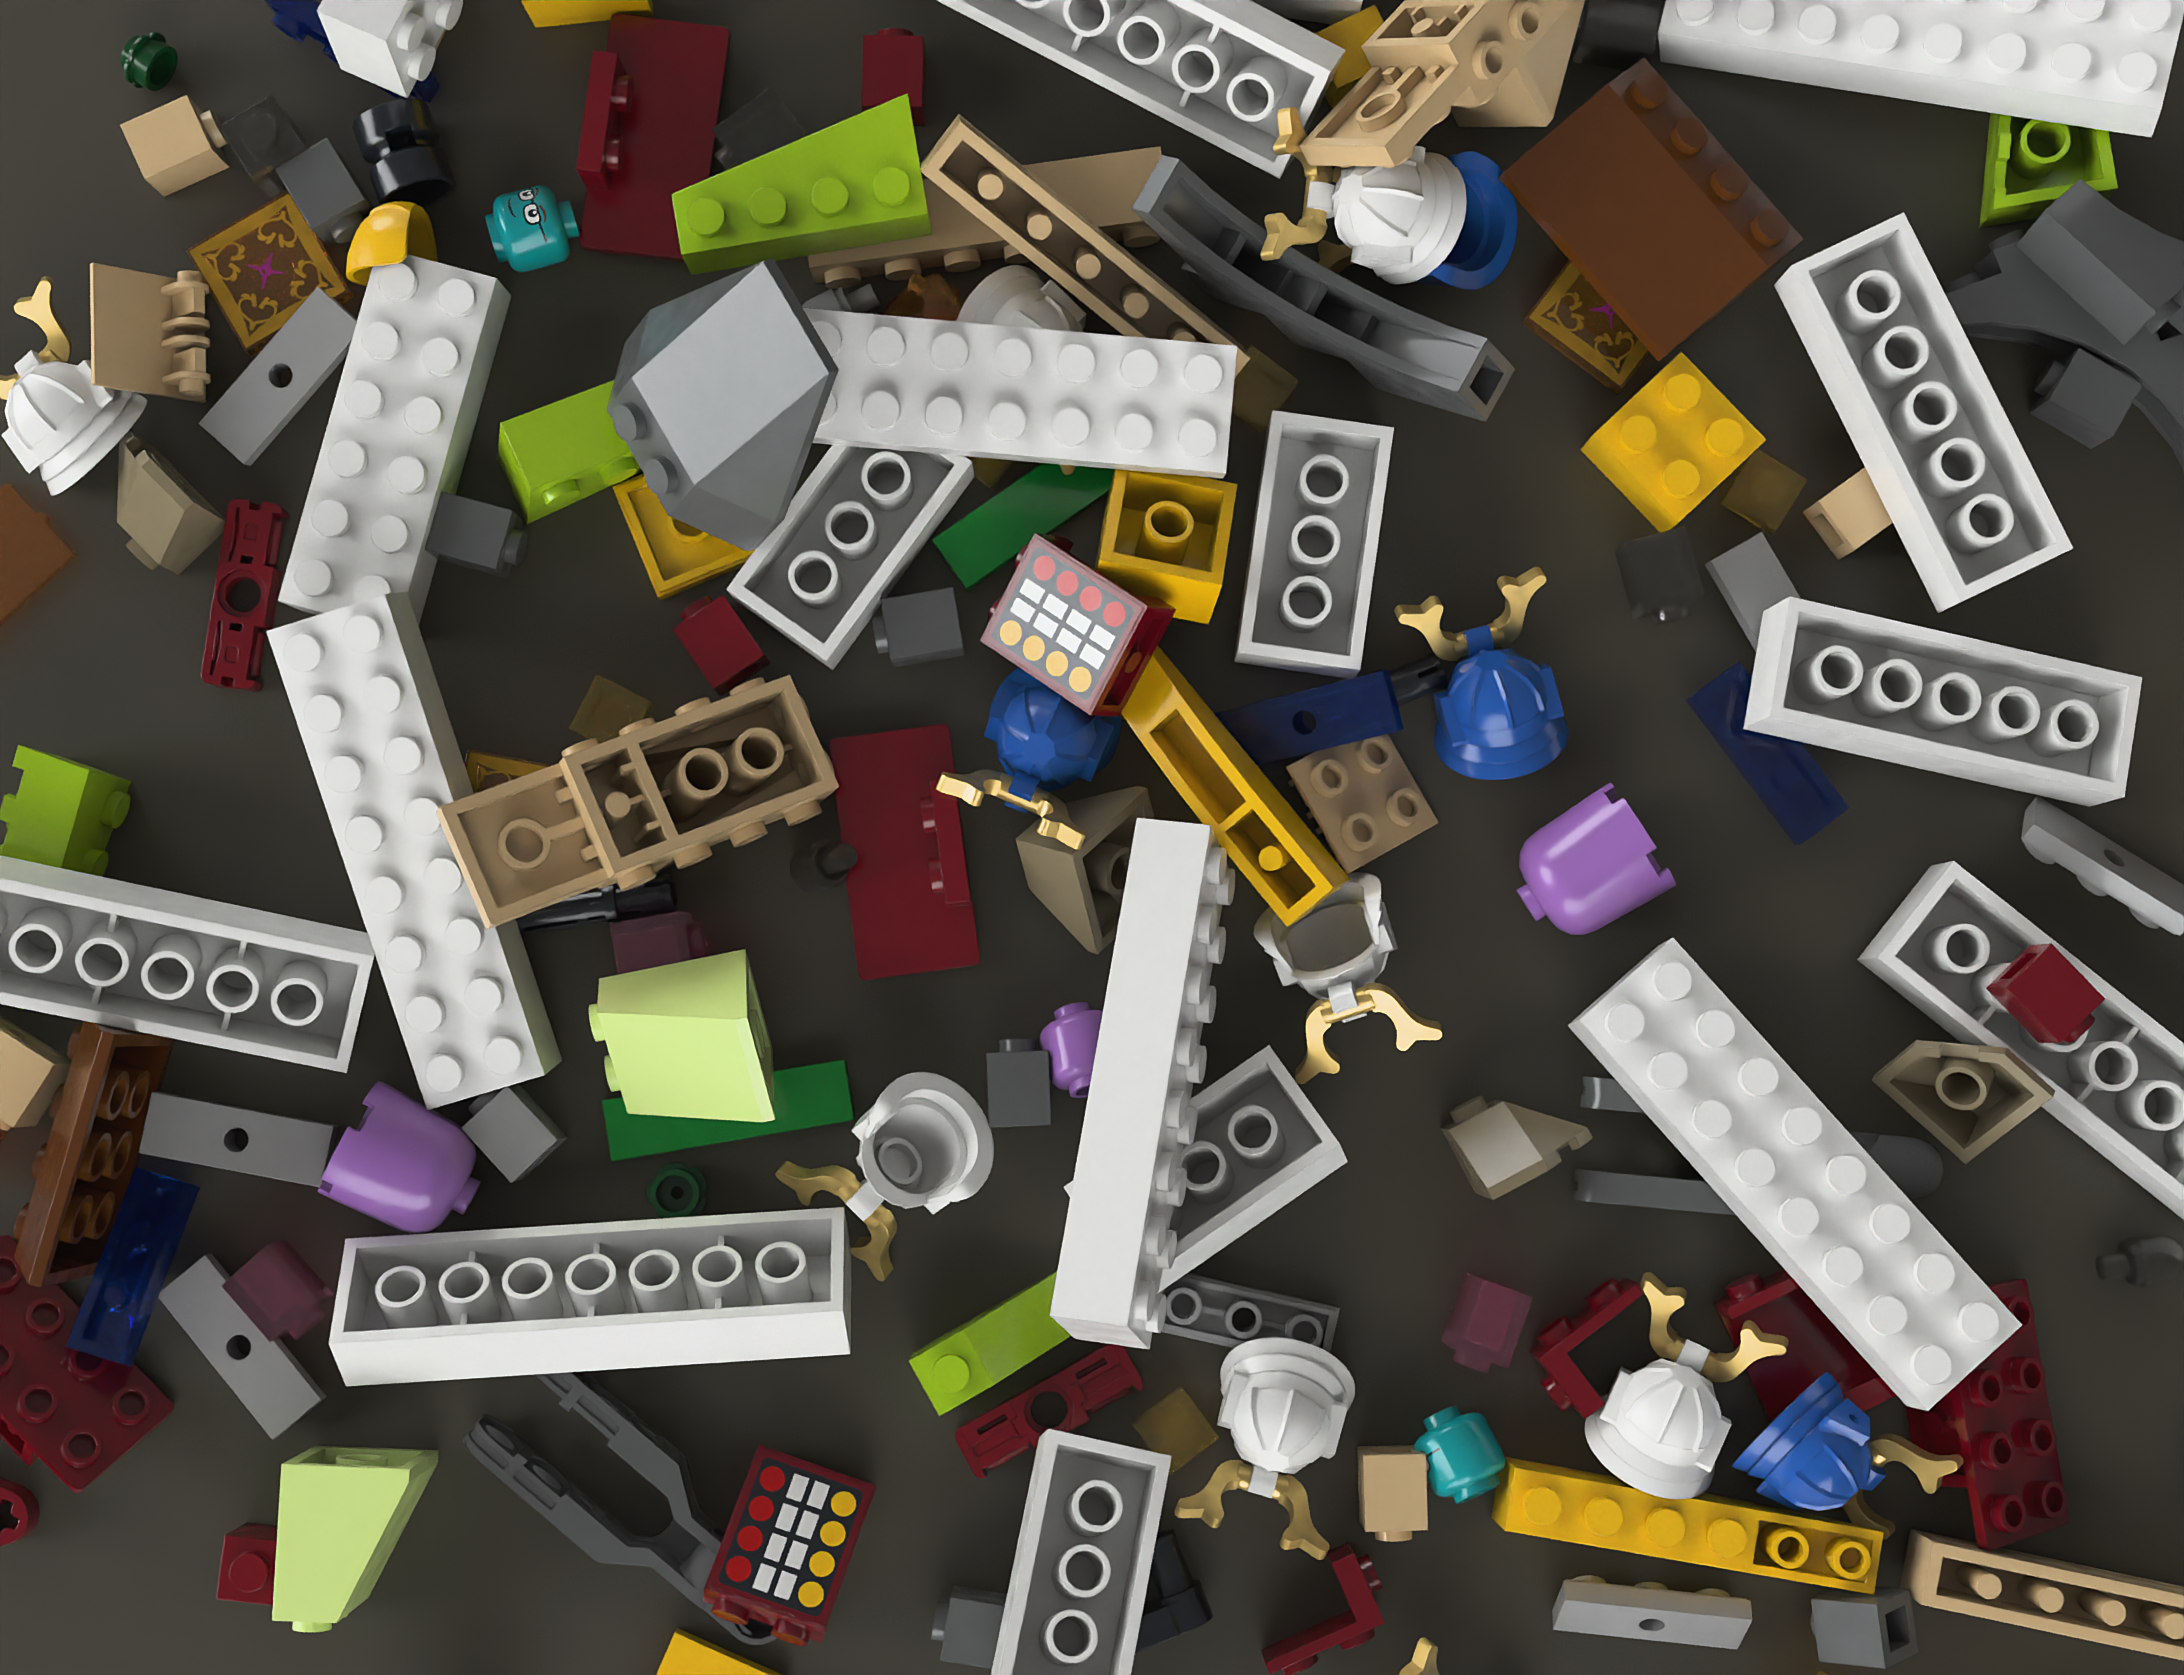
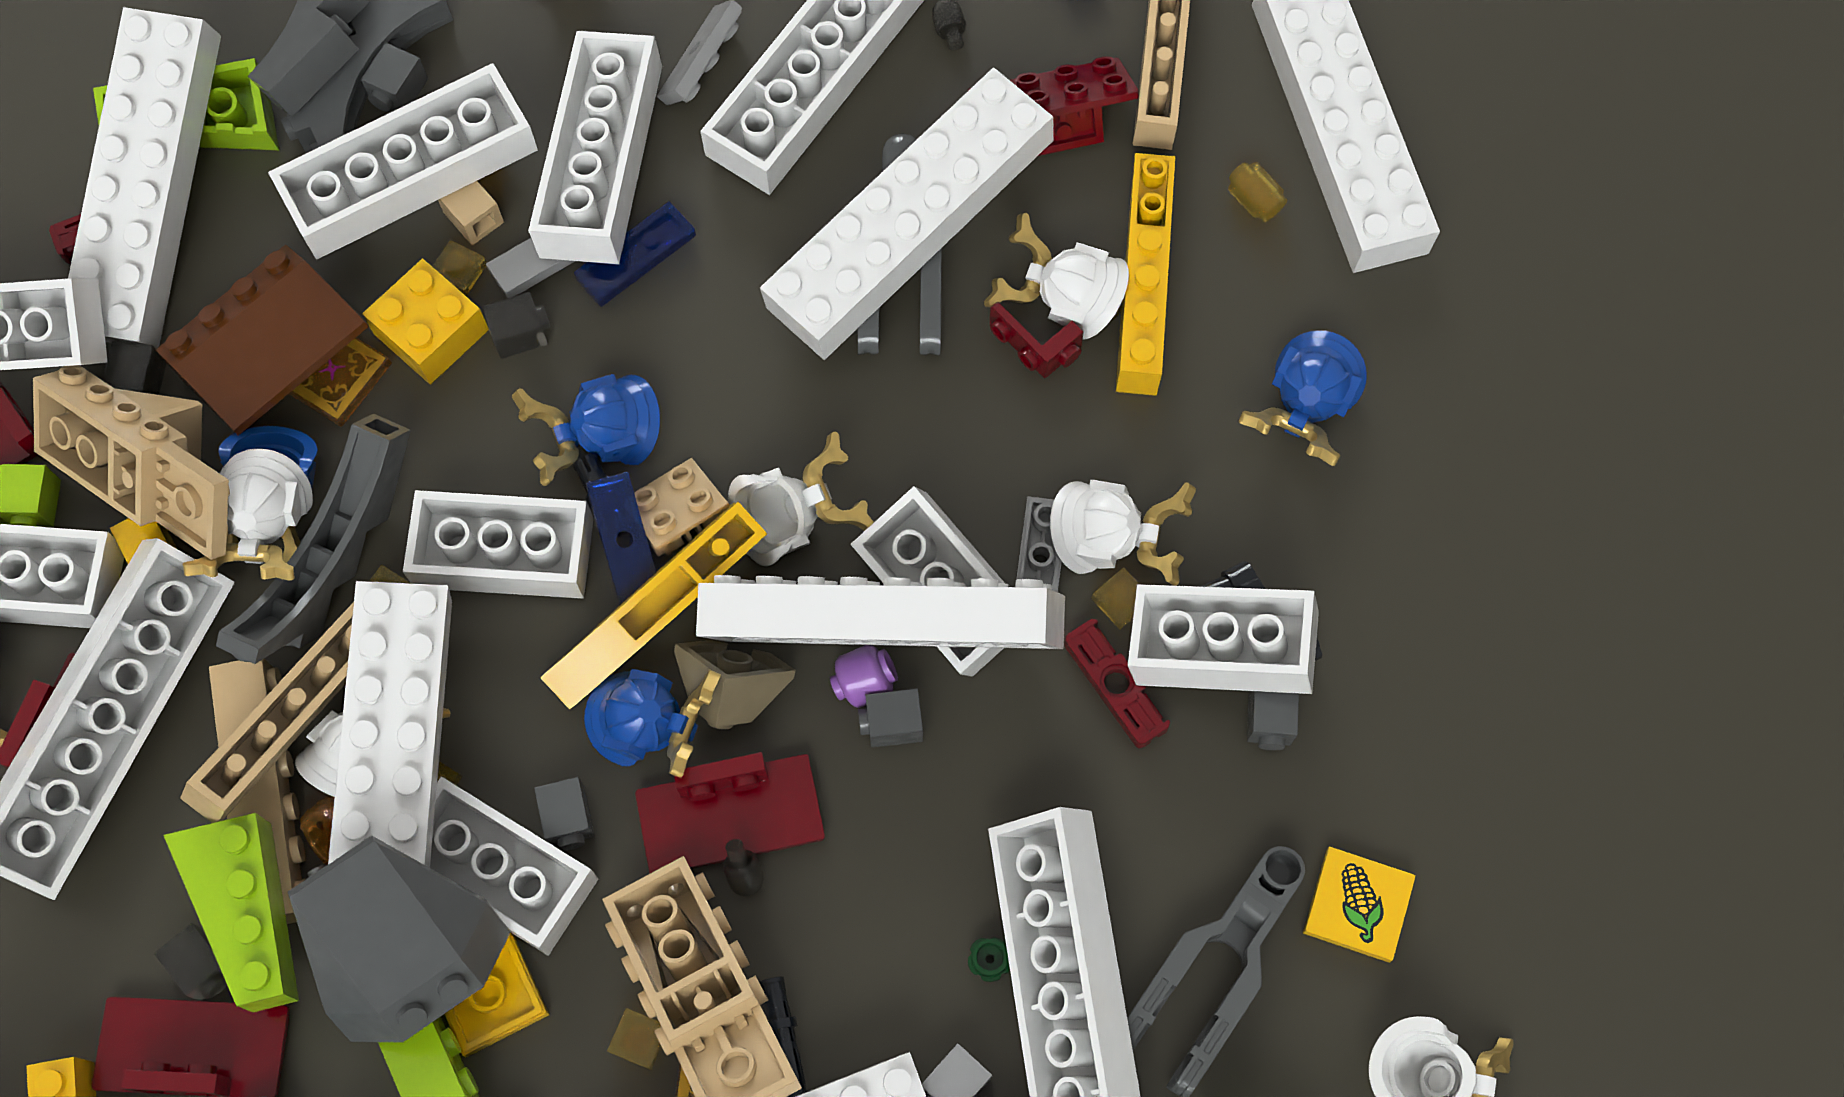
camera: 90 degrees left, 15 degrees down
(657, 941) = (810, 986): clear pink brick -> none
(687, 1040) = (876, 948): yellowish green slope -> none
(720, 643) = (580, 960): dark red brick -> none
(788, 1546) = (1232, 844): panel -> none
(802, 1100) = (926, 927): green tile -> none
(892, 67) = (146, 868): dark red brick -> none
(916, 1149) = (944, 783): white helmet -> none
(989, 1346) = (1072, 717): lime slope -> none
(1006, 523) = (483, 752): green tile -> none
(1075, 627) = (559, 697): panel -> none
(1168, 538) = (499, 642): yellow brick -> none
(1347, 1629) = (1212, 470): dark red bracket -> none
(1392, 1491) = (1145, 452): tan brick -> none
(1460, 1454) = (1116, 412): teal head -> none
(1485, 1322) = (1026, 401): clear pink brick -> none
(1507, 1144) = (908, 394): dark tan slope -> none
(1590, 865) = (714, 350): medium lavender cylinder -> none
(1651, 1612) = (1205, 290): light grey tile -> none
(1813, 1344) = (1042, 194): dark red panel -> none
(1823, 1458) = (1090, 185): blue helmet -> none
(1864, 1627) = (1196, 163): dark grey brick -> none
(1963, 1092) = (849, 118): dark tan slope -> none
(2047, 995) = (783, 69): dark red brick -> none

